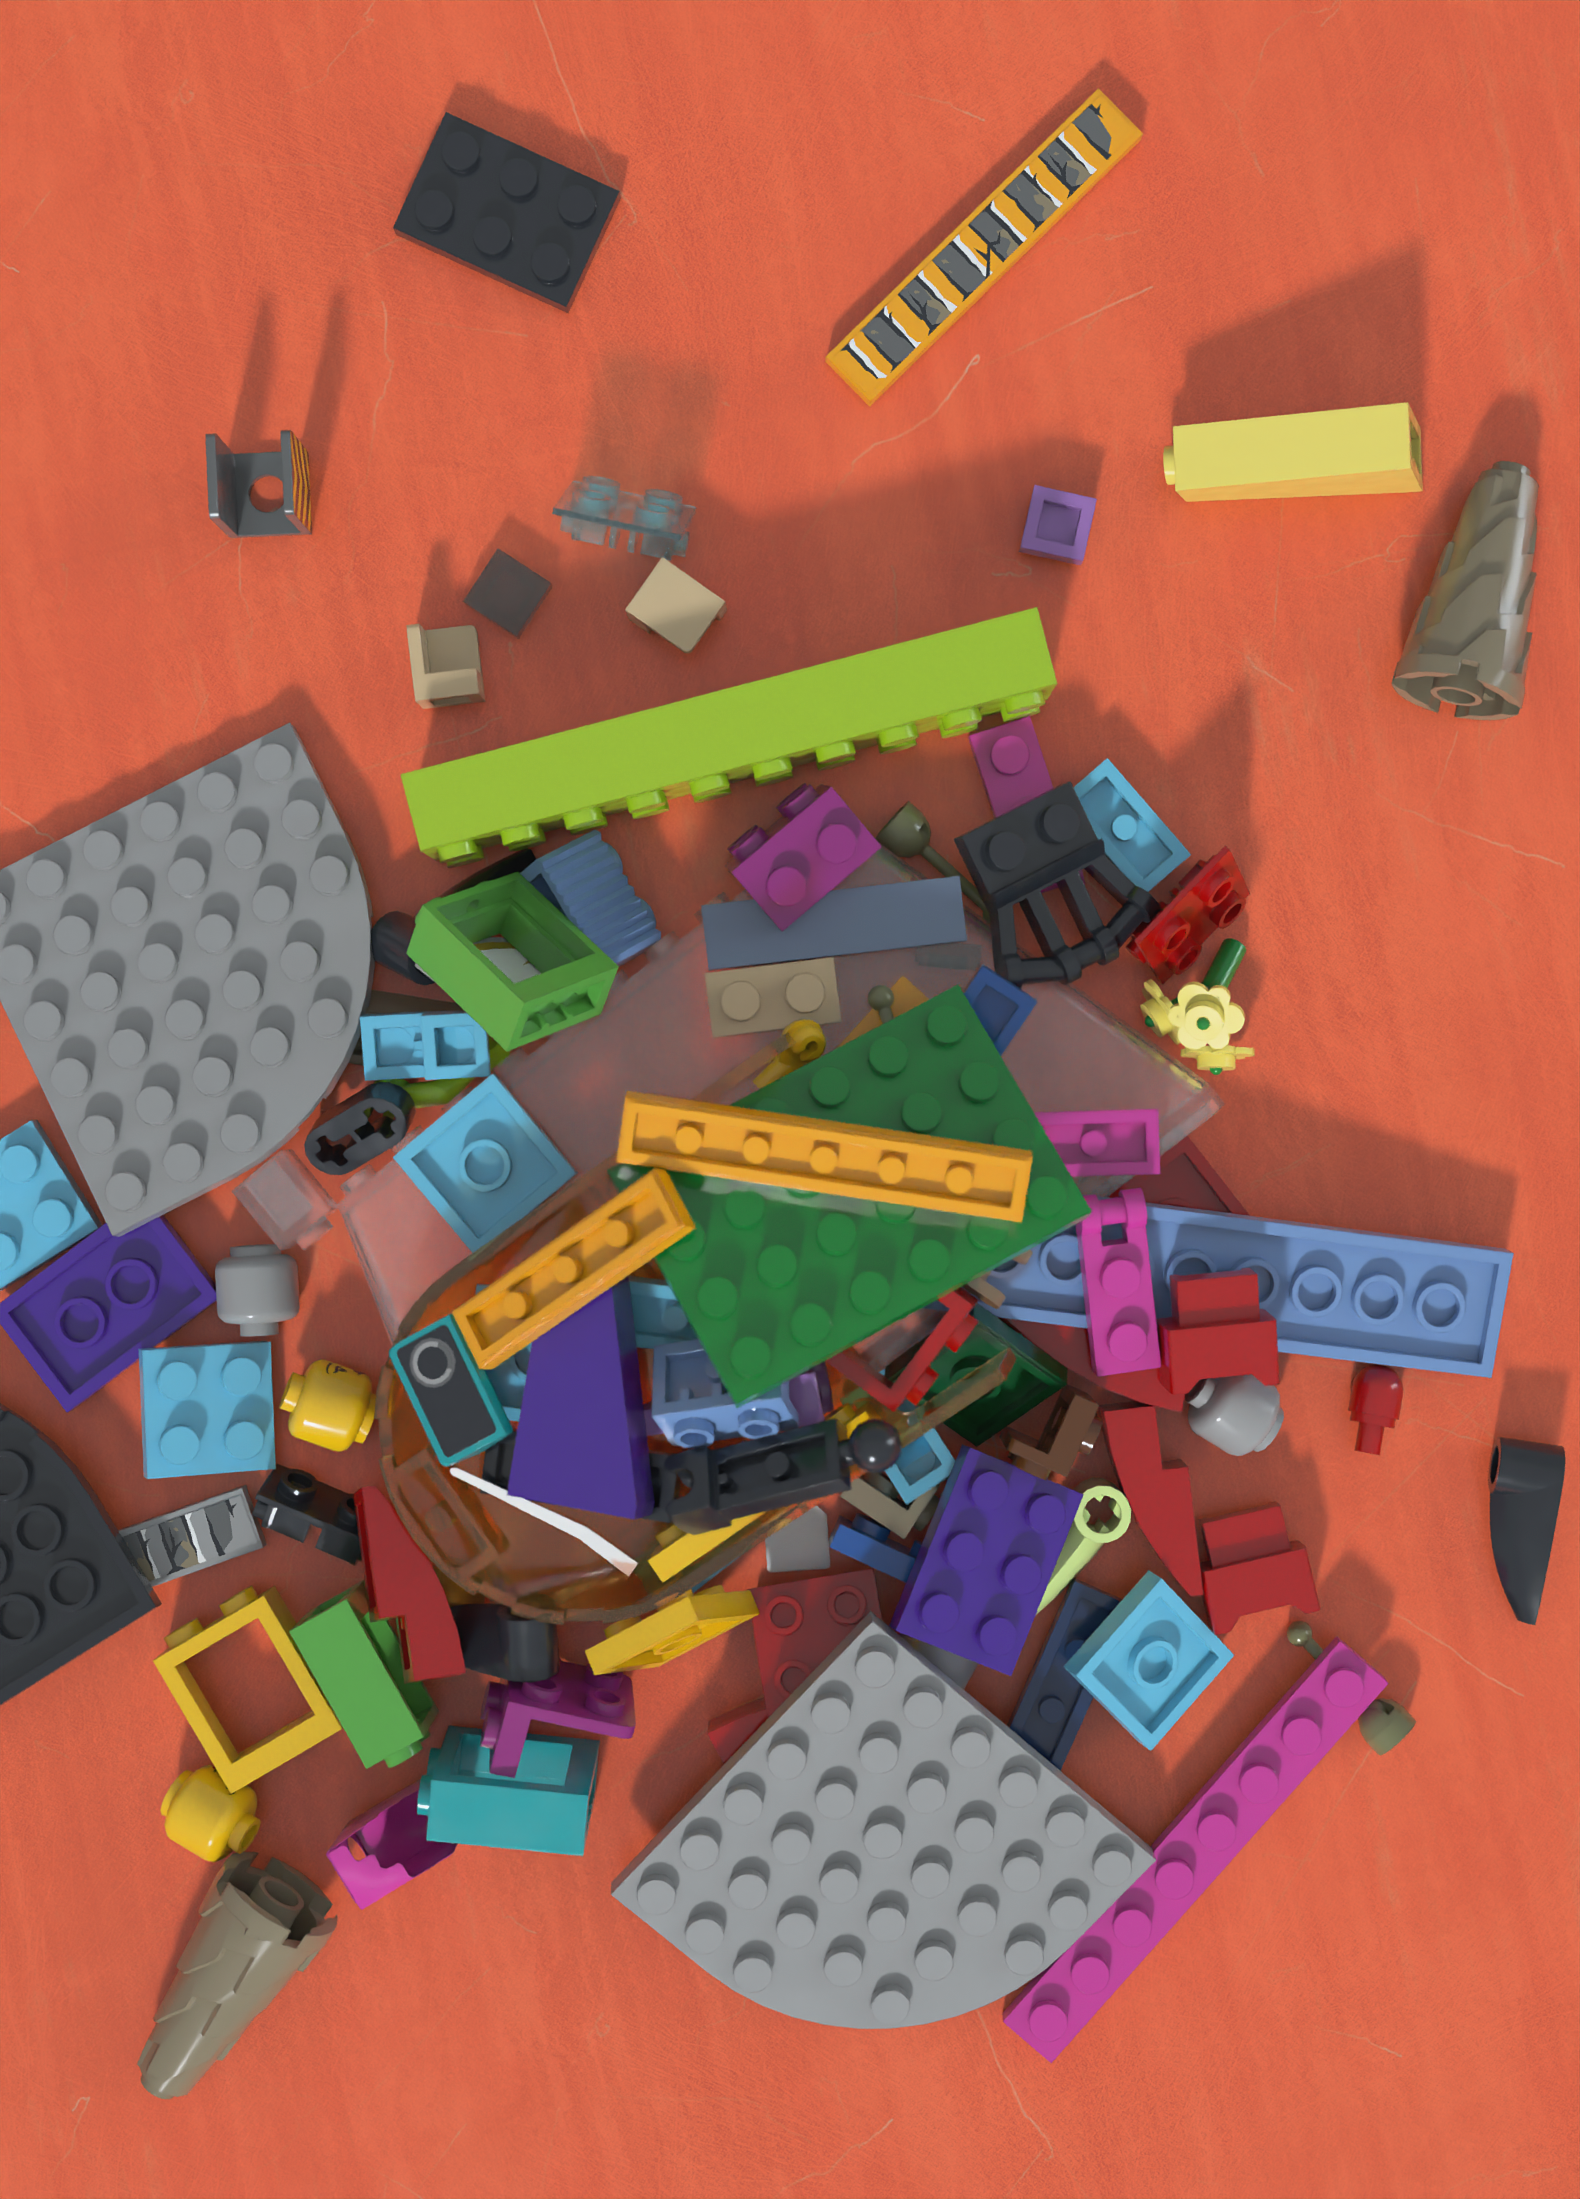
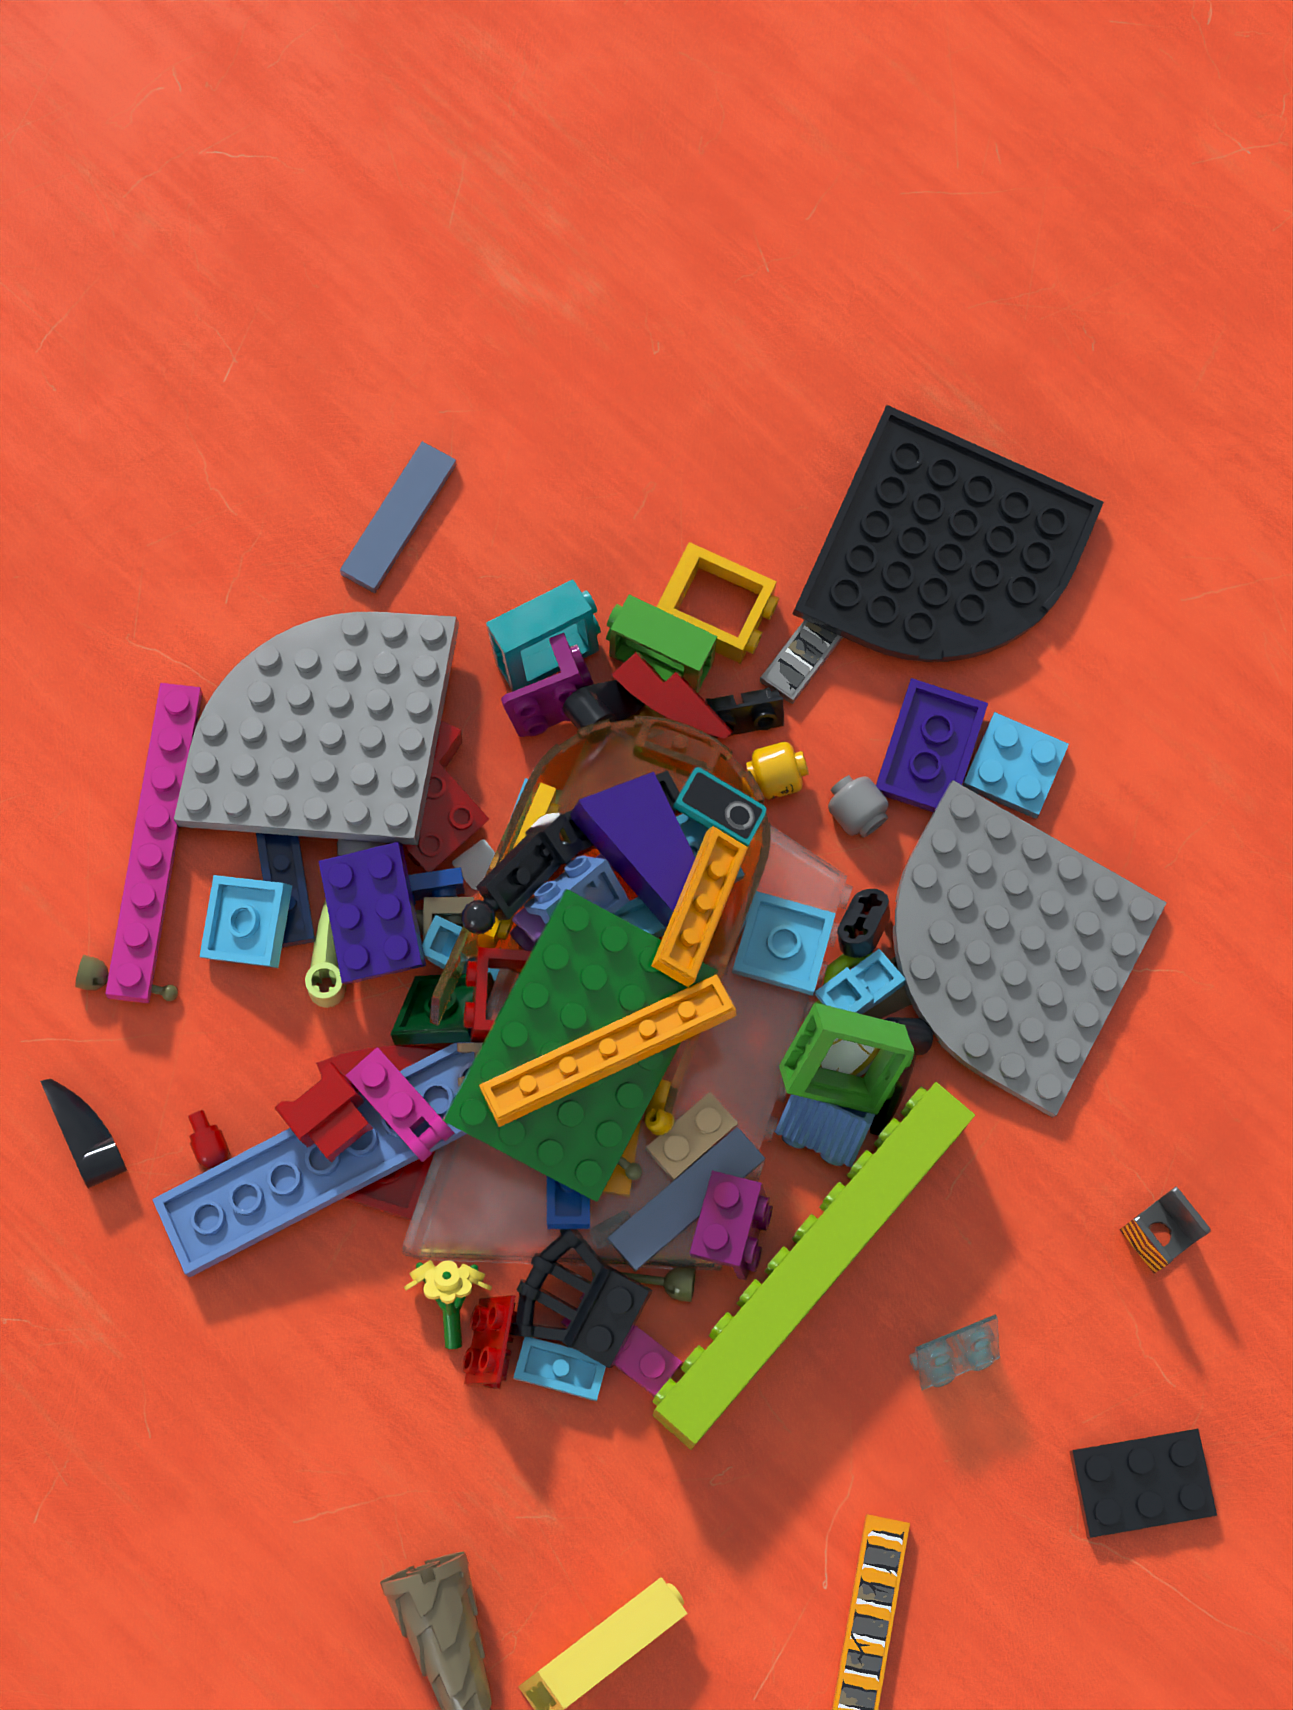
camera: 140 degrees right, 15 degrees down
(207, 1409) = (840, 727): medium azure plate -> none
(207, 1816) = (692, 523): yellow head -> none
(243, 1952) = (627, 464): dark tan cone -> none
(287, 1201) = (874, 860): clear brick -> none
(394, 1844) = (586, 572): dark pink piece -> none
(445, 666) = (996, 1204): tan panel -> none
(508, 593) = (990, 1268): clear smoke tile -> none
(585, 1534) = (568, 783): white sticker -> none
(588, 2089) = (398, 517): none -> sand blue tile
(671, 1631) = (516, 769): yellow plate -> none
(675, 606) = (893, 1320): tan panel -> none
(1057, 525) = (713, 1516): medium lavender plate -> none
(1070, 1429) = (380, 988): reddish brown bracket -> none
(1105, 1141) = (462, 1174): dark pink plate -> none
(1154, 1488) = (302, 1013): red slope -> none
(1235, 1413) = (283, 1082): light grey head -> none
(1253, 1567) = (220, 1009): red piece -> none

